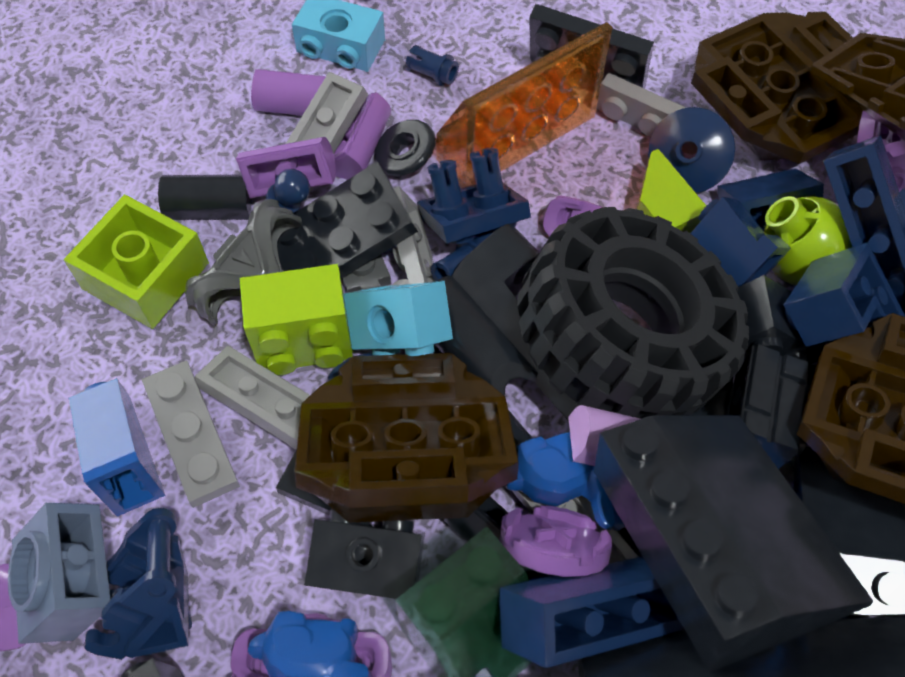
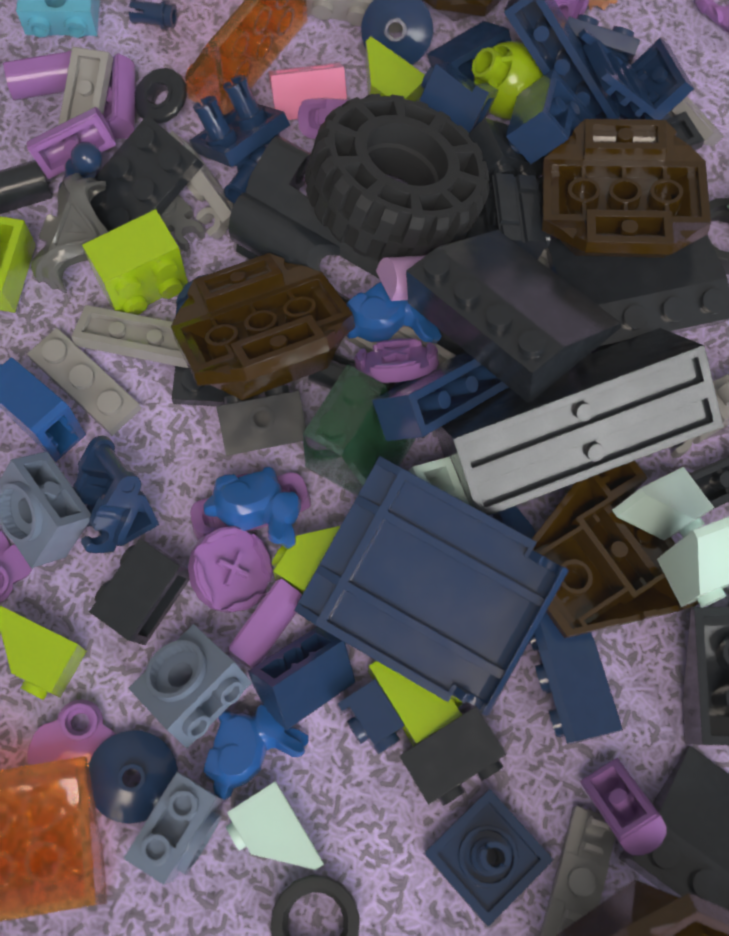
camera: 25 degrees left, 10 degrees up
(399, 318) = (218, 237): medium azure brick -> none
(557, 177) = (303, 83): none -> bright pink panel

